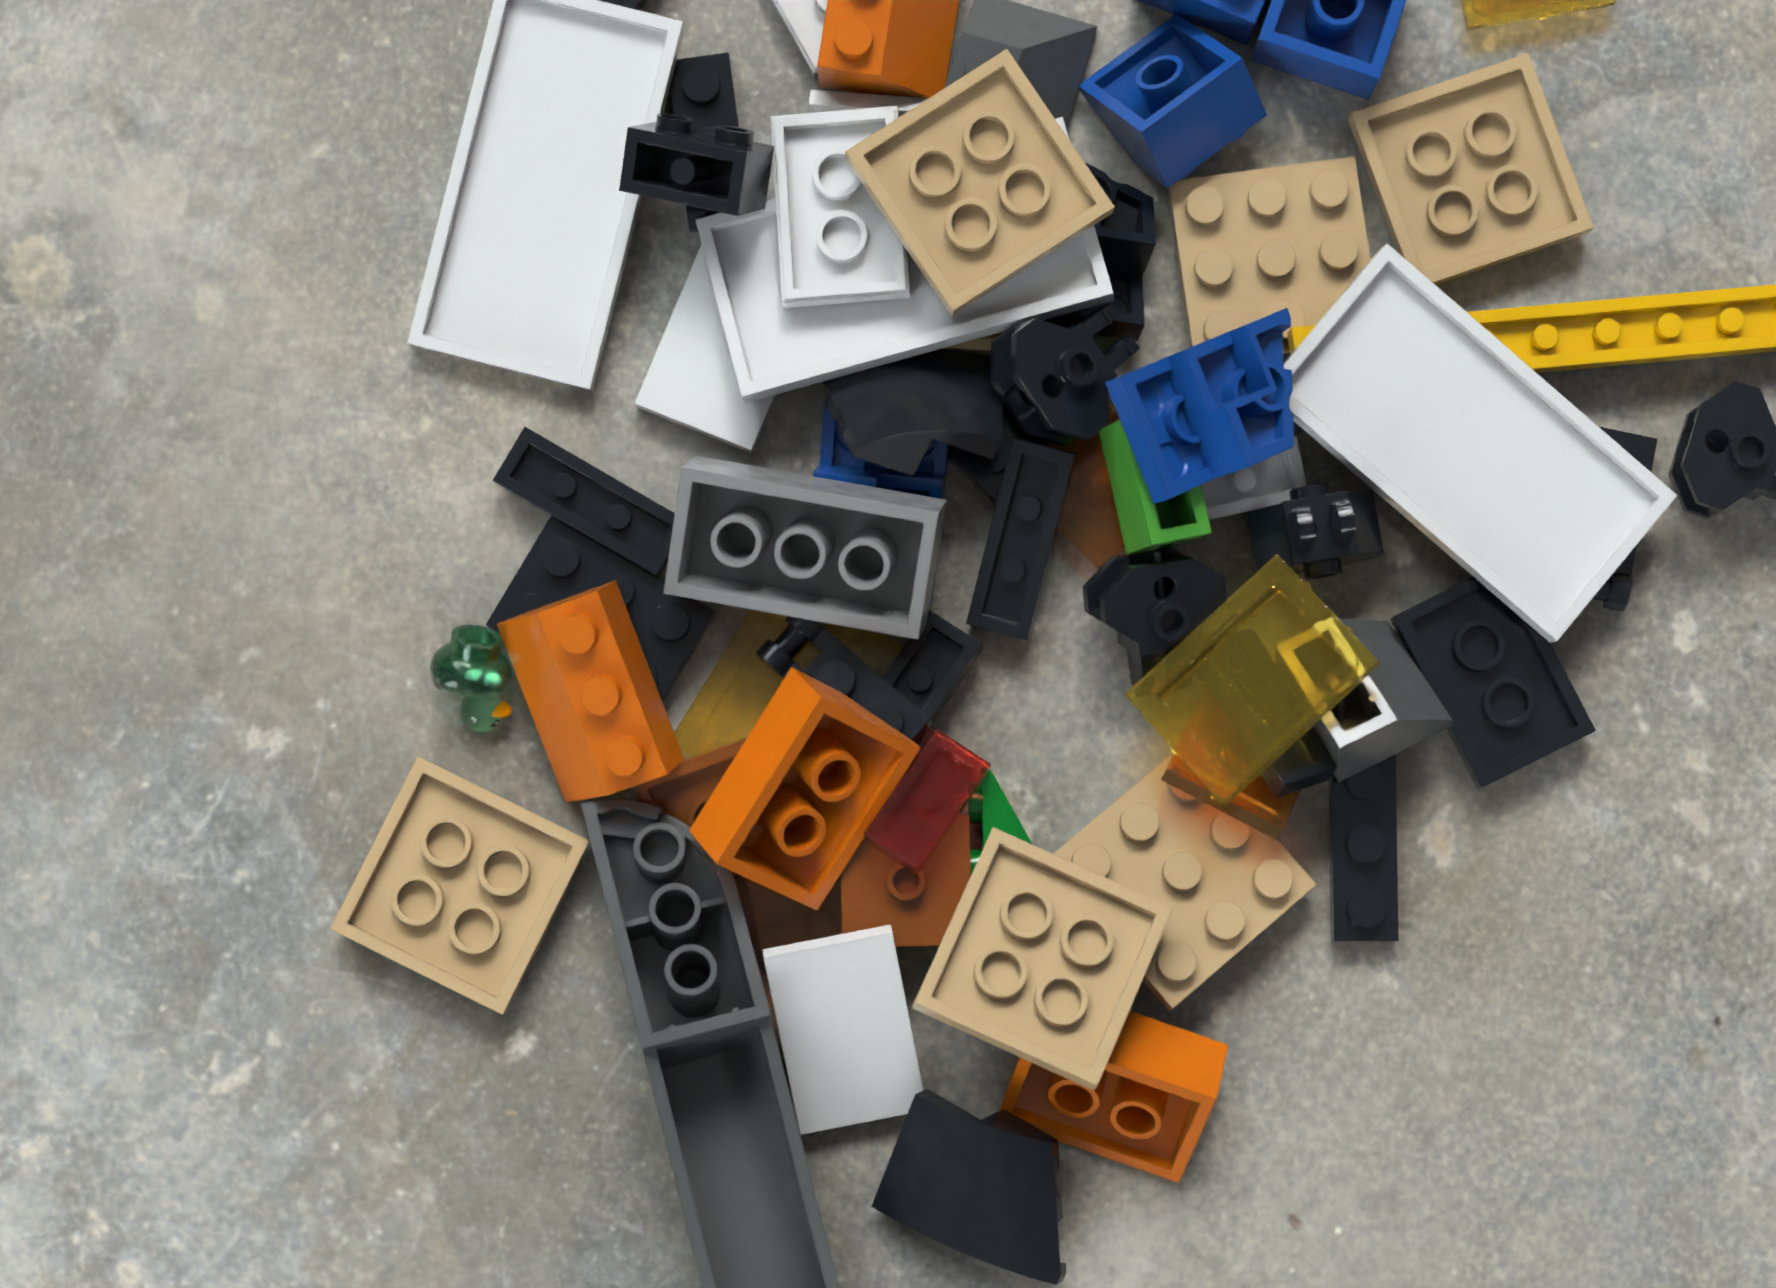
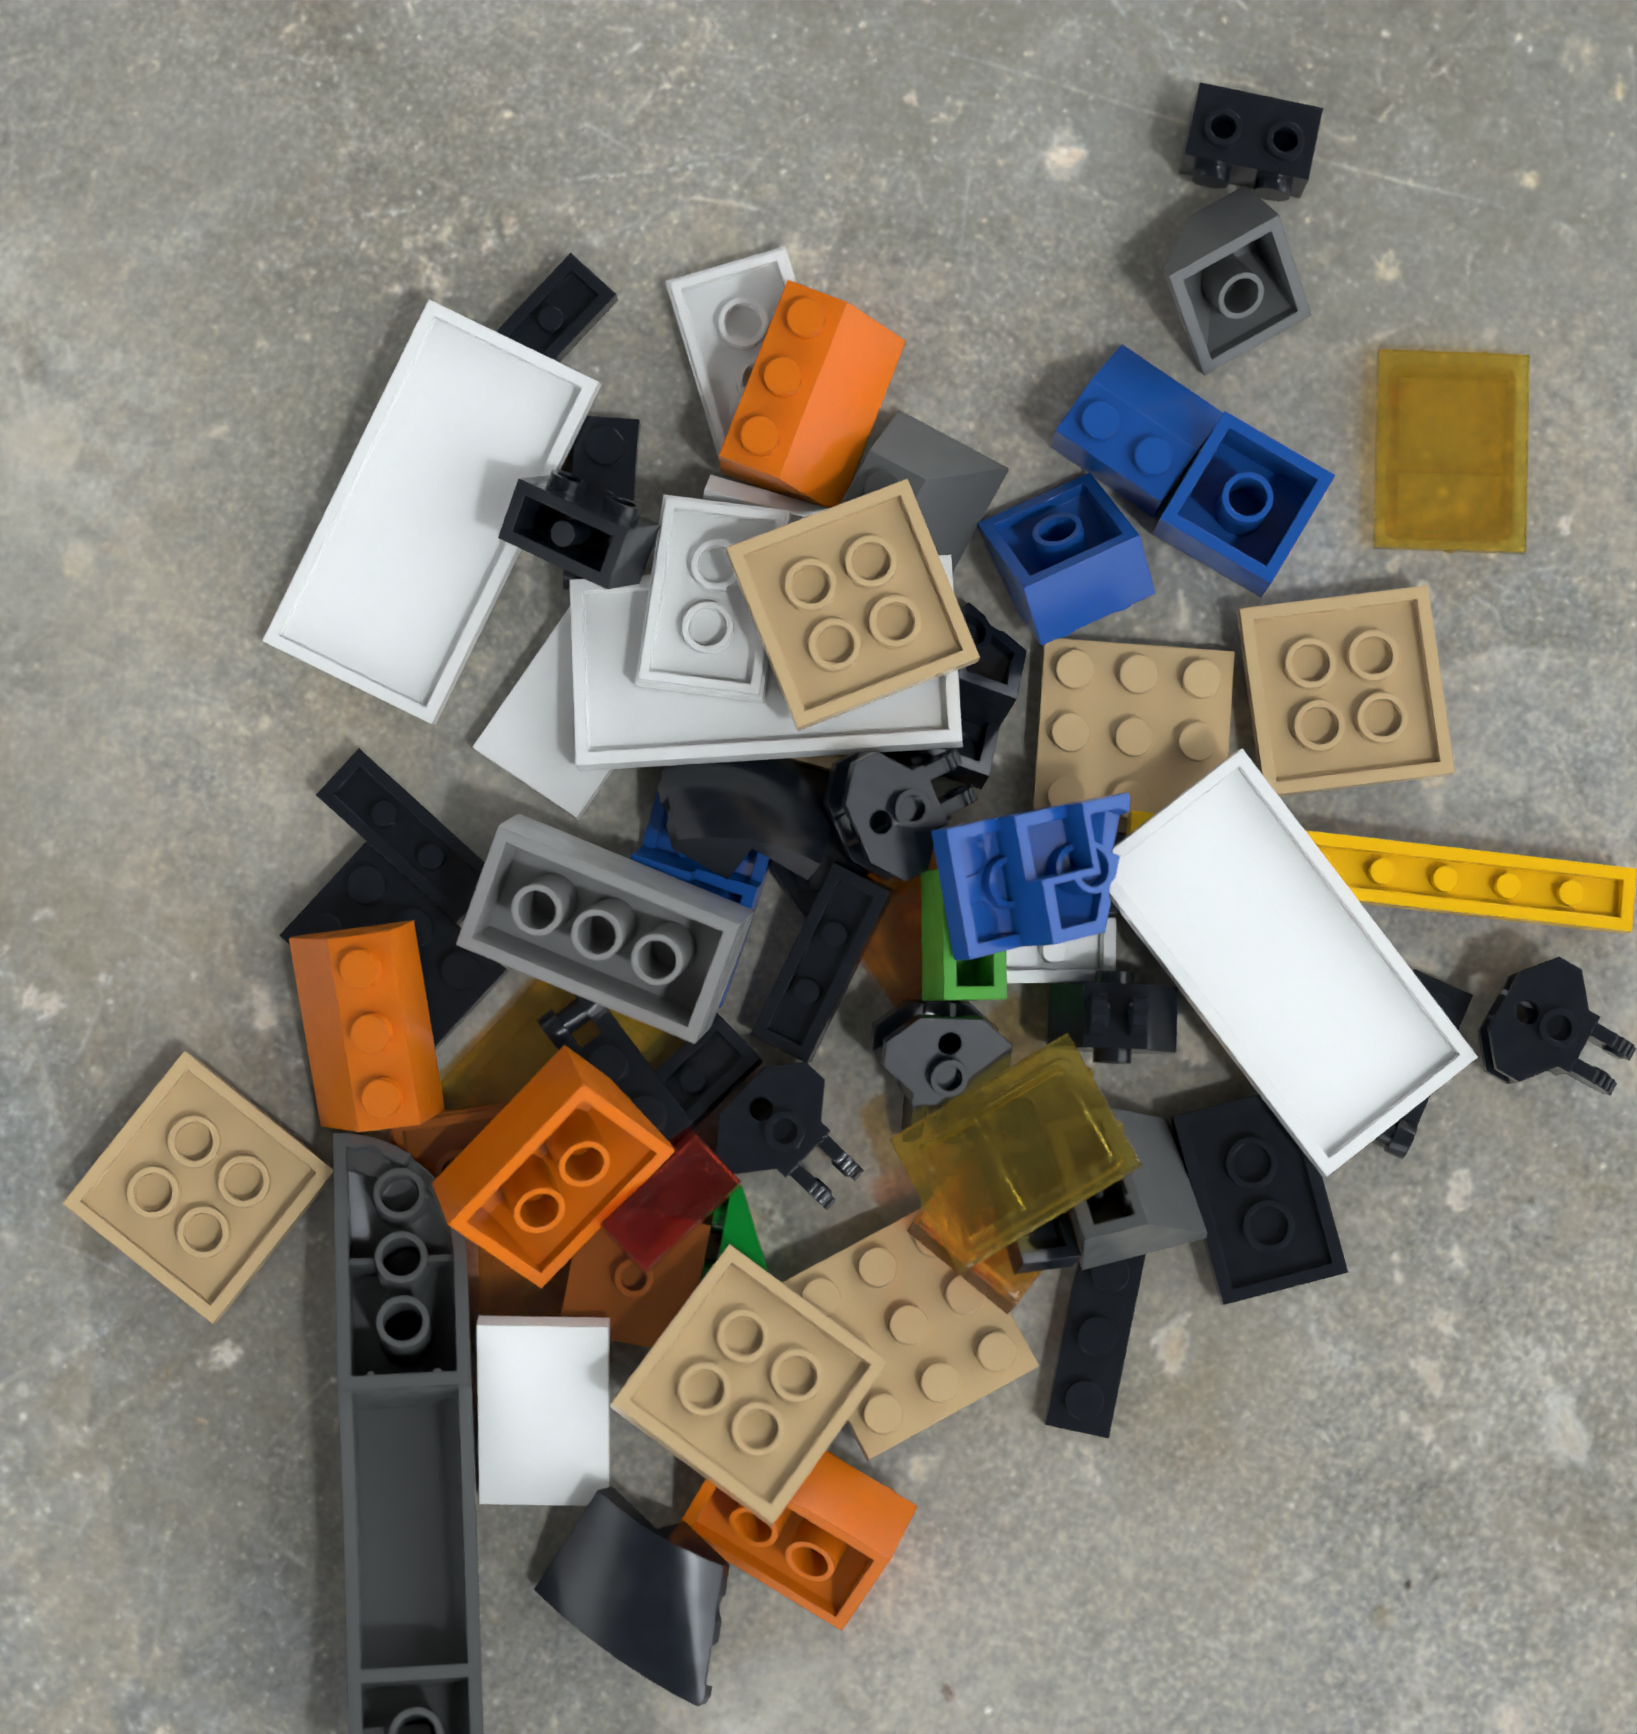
camera: 10 degrees right, 0 degrees up
(474, 669) = (260, 979): clear green animal -> none
(1024, 714) = (787, 1134): none -> black hinge

